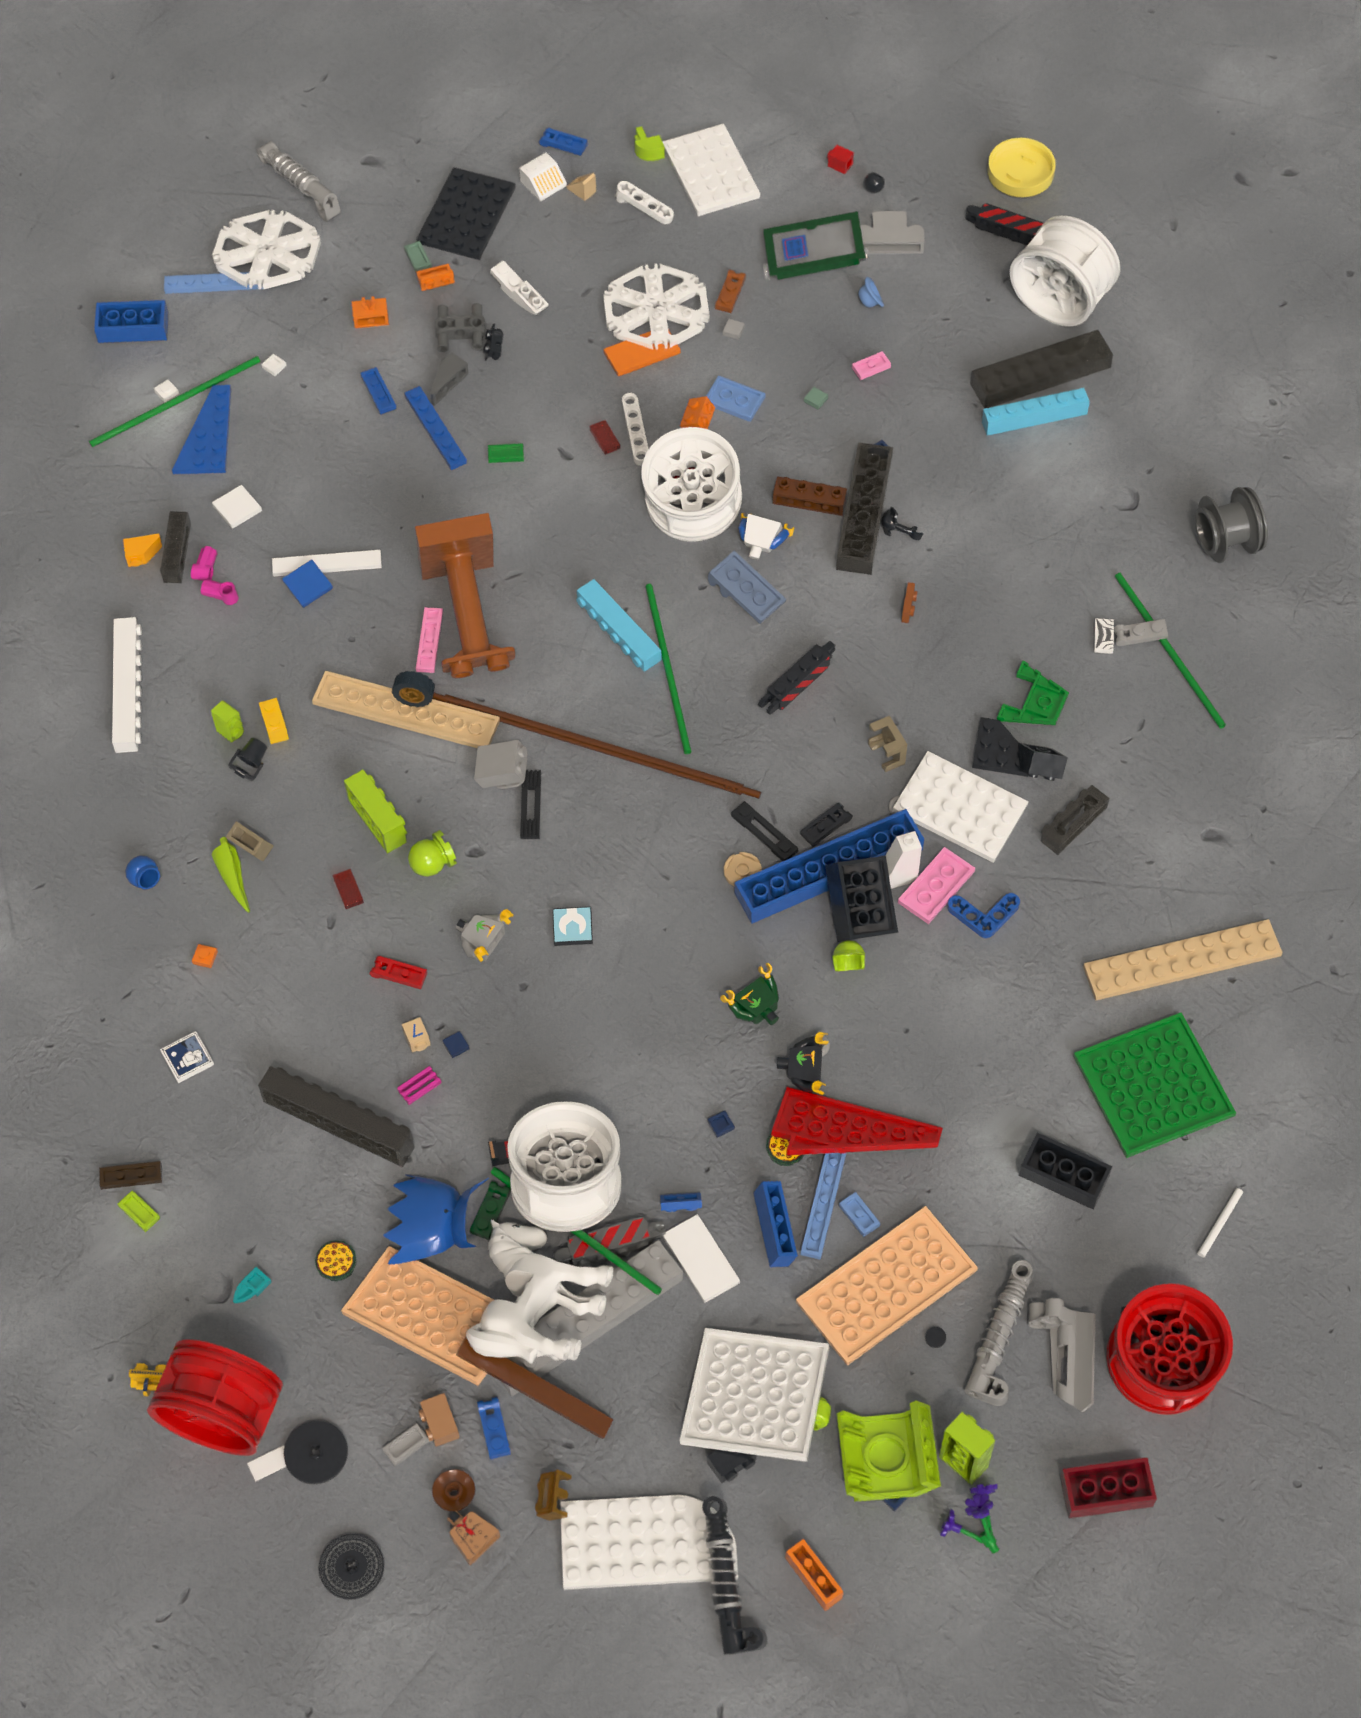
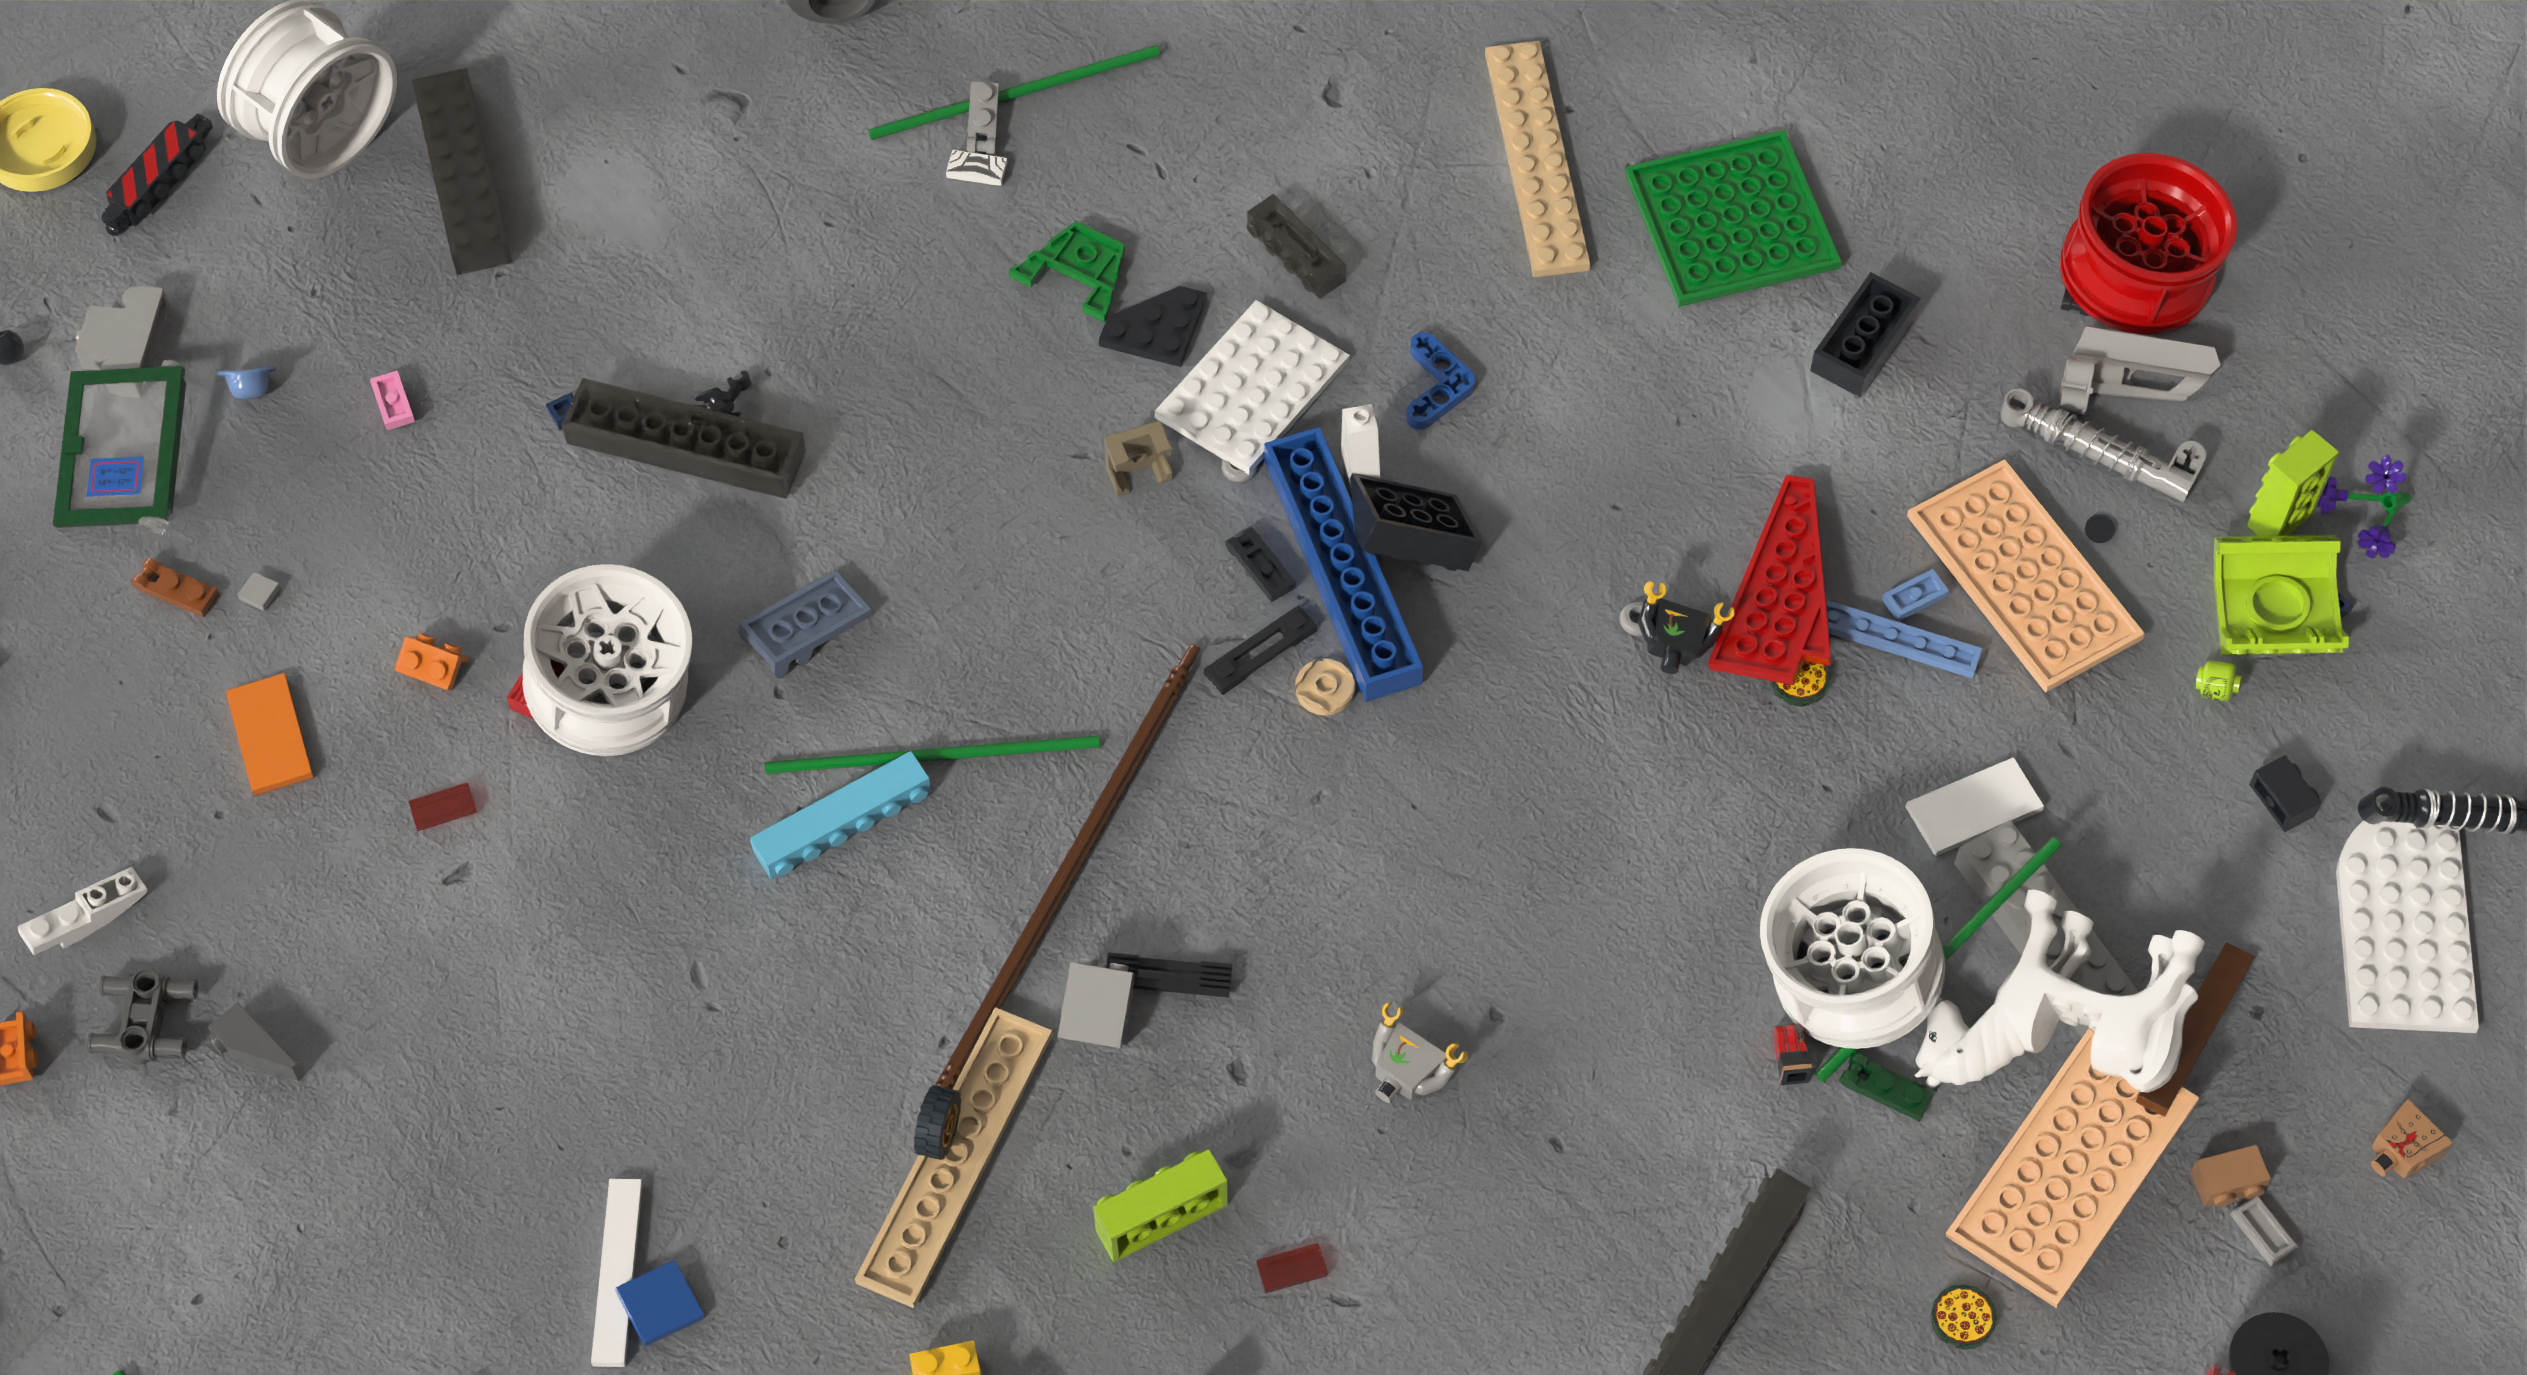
camera: 85 degrees left, 0 degrees up
(274, 365) = (140, 1346): white tile -> none
(352, 1583) = (2480, 1322): black piece -> none
(370, 312) = (66, 1166): orange brick -> none
(378, 390) = (251, 1163): blue plate -> none
(399, 972) = (1461, 1193): red plate -> none
(416, 1035) = (1580, 1172): tan brick -> none
(424, 1224) = (1904, 1164): blue piece -> none
(429, 640) = (815, 1109): bright pink plate -> none
(430, 856) = (1257, 1124): lime tile -> none
(435, 428) = (355, 1075): blue plate -> none
(437, 1081) = (1651, 1154): dark pink tile -> none
(453, 1481) = (2344, 1150): reddish brown dish -> none
(455, 1044) = (1597, 1118): dark blue tile -> none
(456, 550) = (687, 1019): dark orange piece -> none
(493, 337) = (184, 966): black hinge -> none
(494, 1429) = (2239, 1106): blue plate -> none
(505, 453) = (439, 965): green tile -> none
(549, 1493) = (2348, 1028): pearl gold window -> none
(572, 926) = (1399, 933): tile -> none
(618, 1238) = (1951, 913): dark grey hinge -> none
(635, 422) = (423, 751): white beam -> none
(668, 307) = (188, 720): white plate -> none
(675, 1202) = (1887, 820): blue plate -> none
(720, 1124) = (1757, 759): dark blue tile -> none
(735, 398) = (406, 604): medium blue tile -> none
(755, 1394) = (2199, 746): white plate -> none
(757, 1000) = (1559, 684): dark green torso -> none
(762, 534) = (708, 586): white torso -> none
(775, 1224) = (1933, 697): blue brick -> none
(798, 677) = (990, 568): black hinge -> none
(809, 496) = (638, 513): reddish brown brick -> none
(814, 1575) = (2456, 706): orange brick -> none
(816, 398) = (436, 487): sand green tile -> none
(848, 956) = (1498, 553): lime helmet -> none
(908, 608) = (873, 405): dark orange plate -> none
(936, 885) = (1404, 445): bright pink plate -> none
(1035, 411) = (544, 190): medium azure brick -> none
(1041, 761) = (1194, 268): black slope -> none
(1108, 1487) = (2325, 352): dark red brick -> none
(1220, 1222) = (1940, 178): white bar -> none

